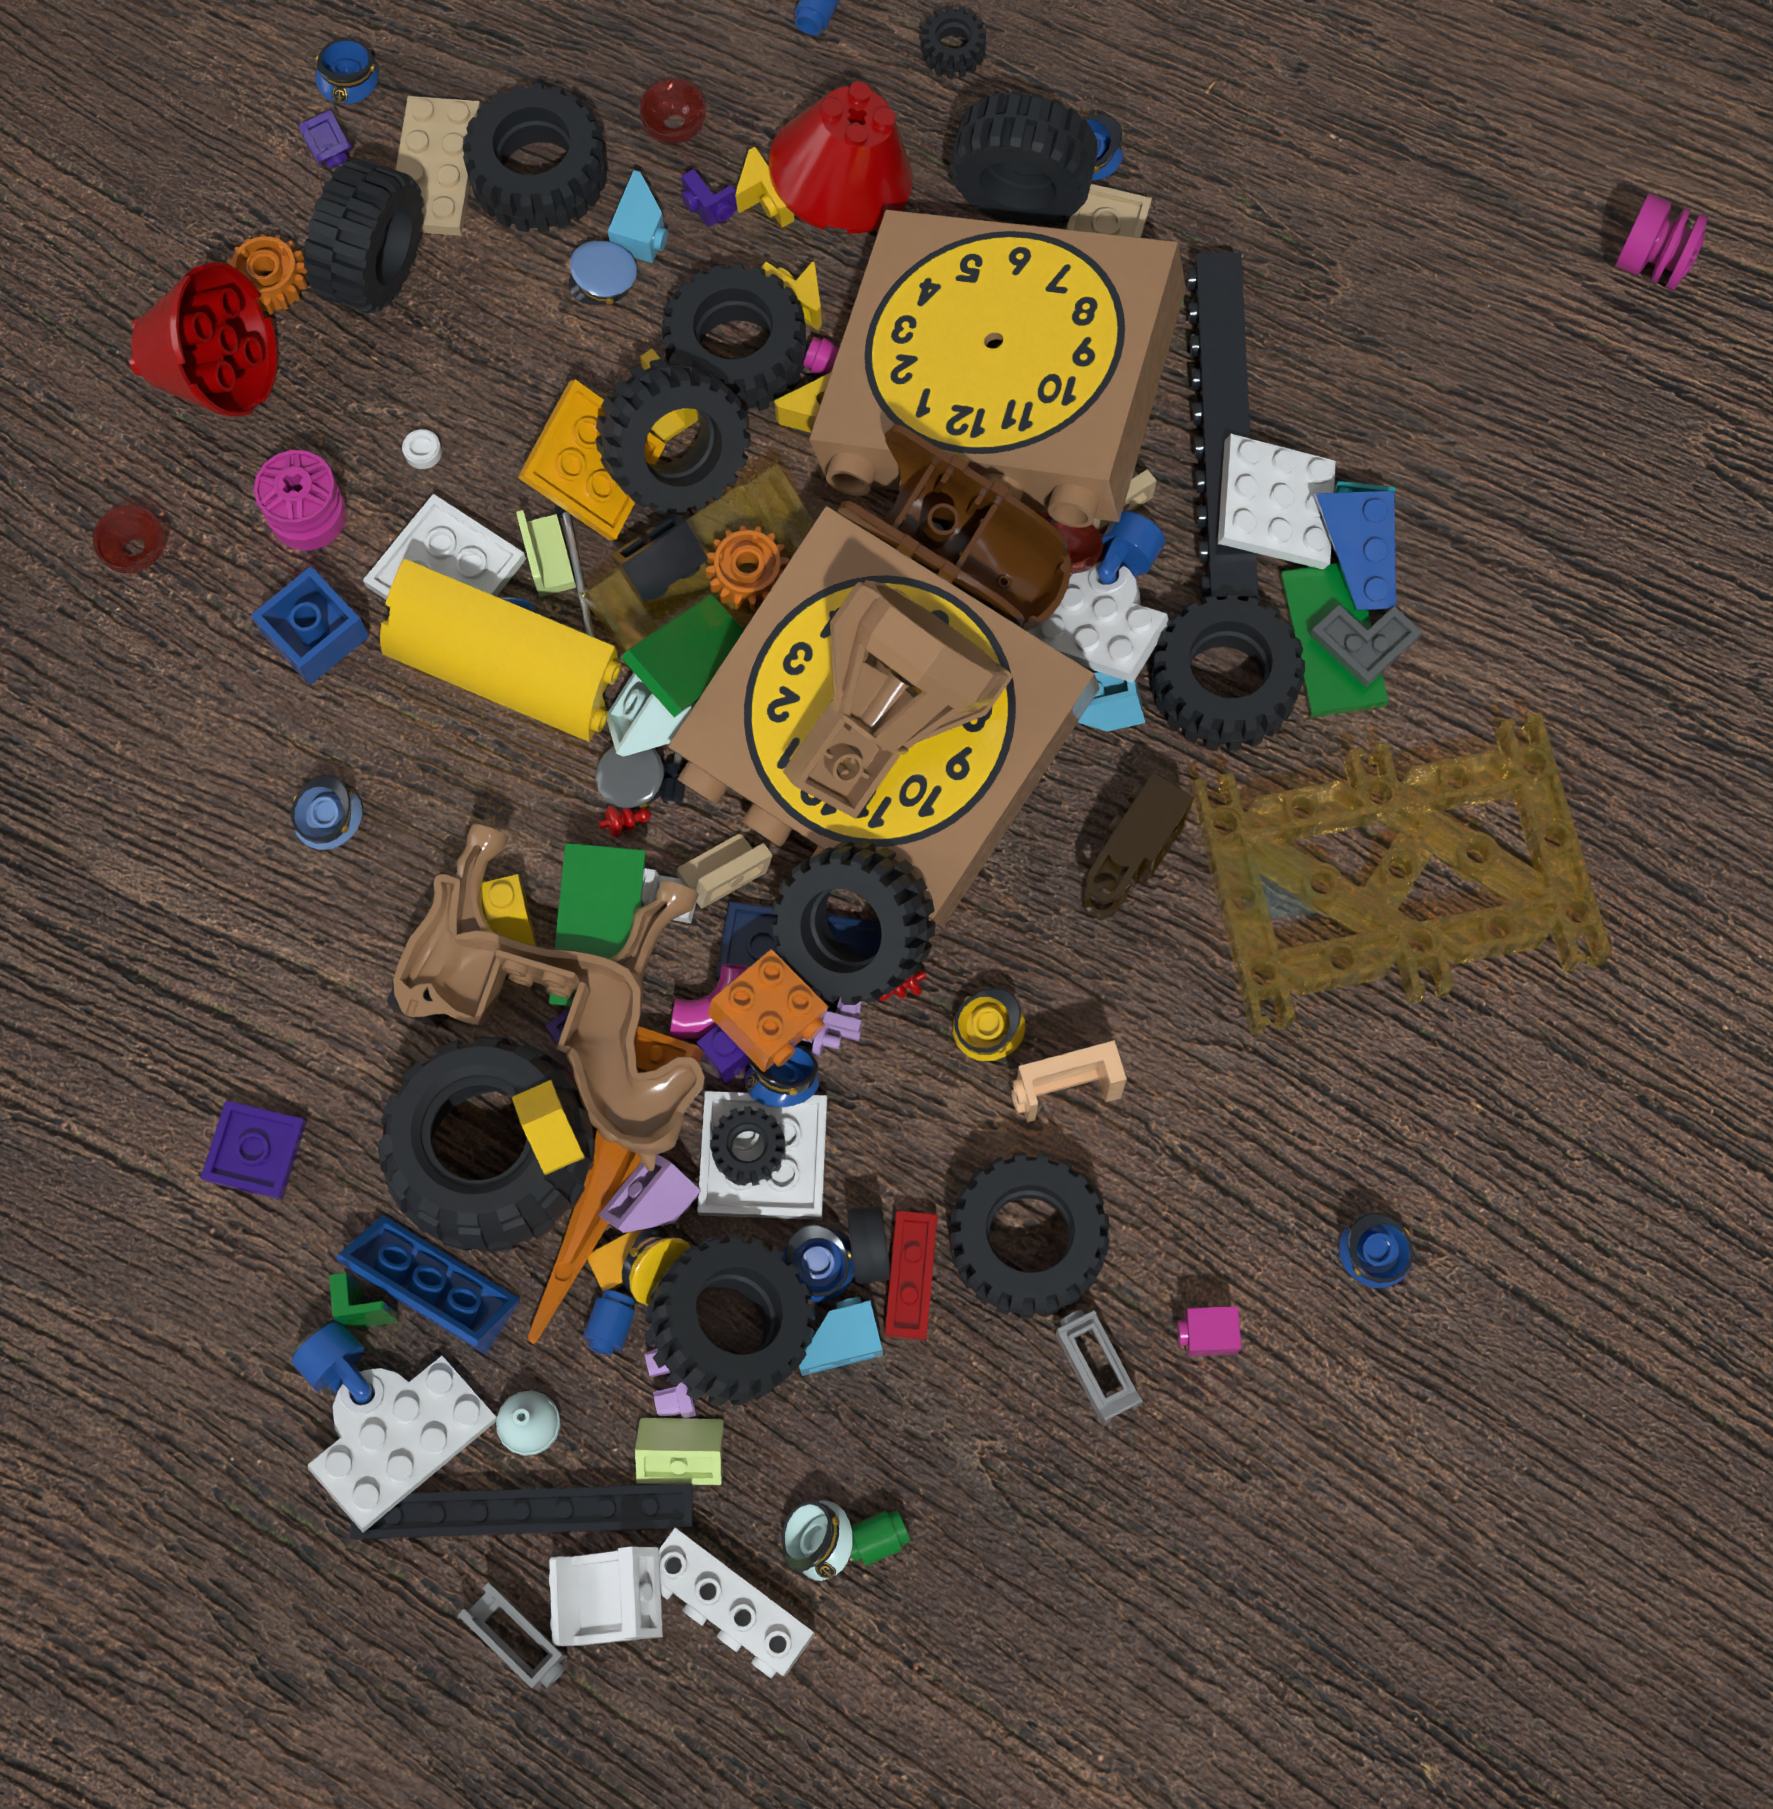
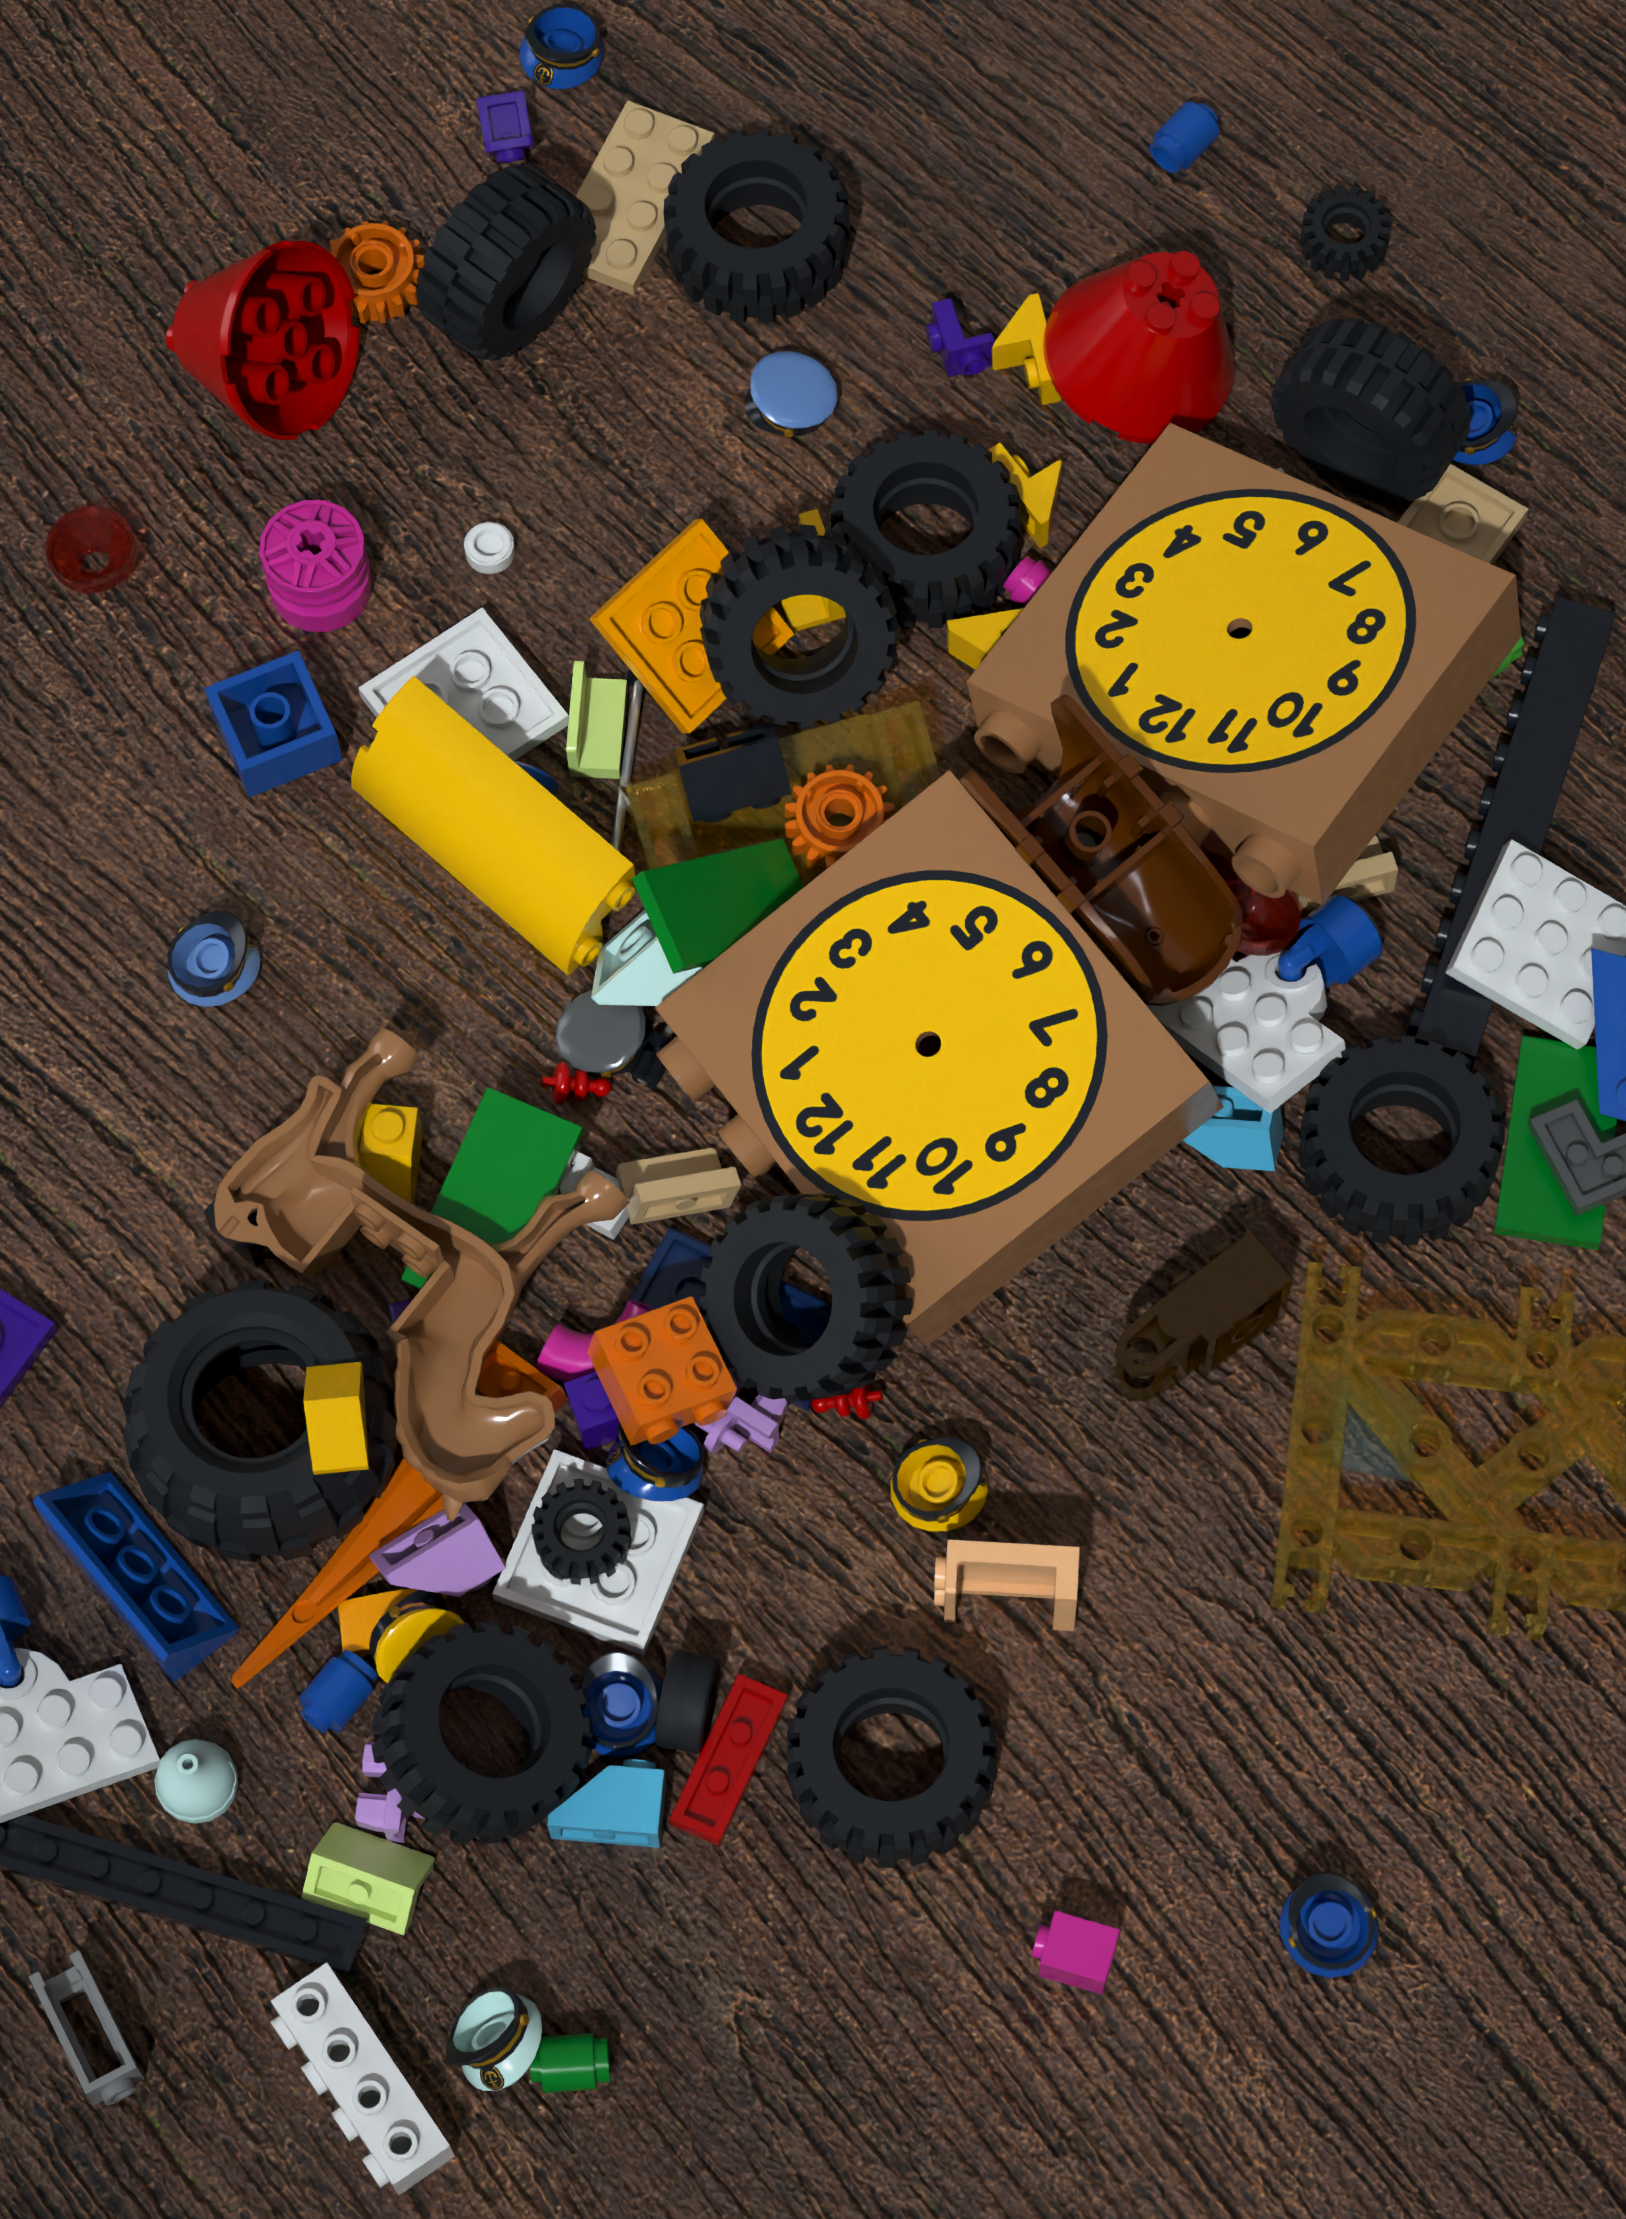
camera: 20 degrees right, 5 degrees down
(349, 1305) = (32, 1569): green panel -> none
(605, 1597) = (213, 2017): white panel -> none
(638, 221) = (859, 344): medium azure slope -> none
(671, 99) = (952, 200): clear red piece -> none
(877, 710) = (972, 1025): medium nougat plate -> none
(1076, 1325) = (915, 1886): light grey window -> none

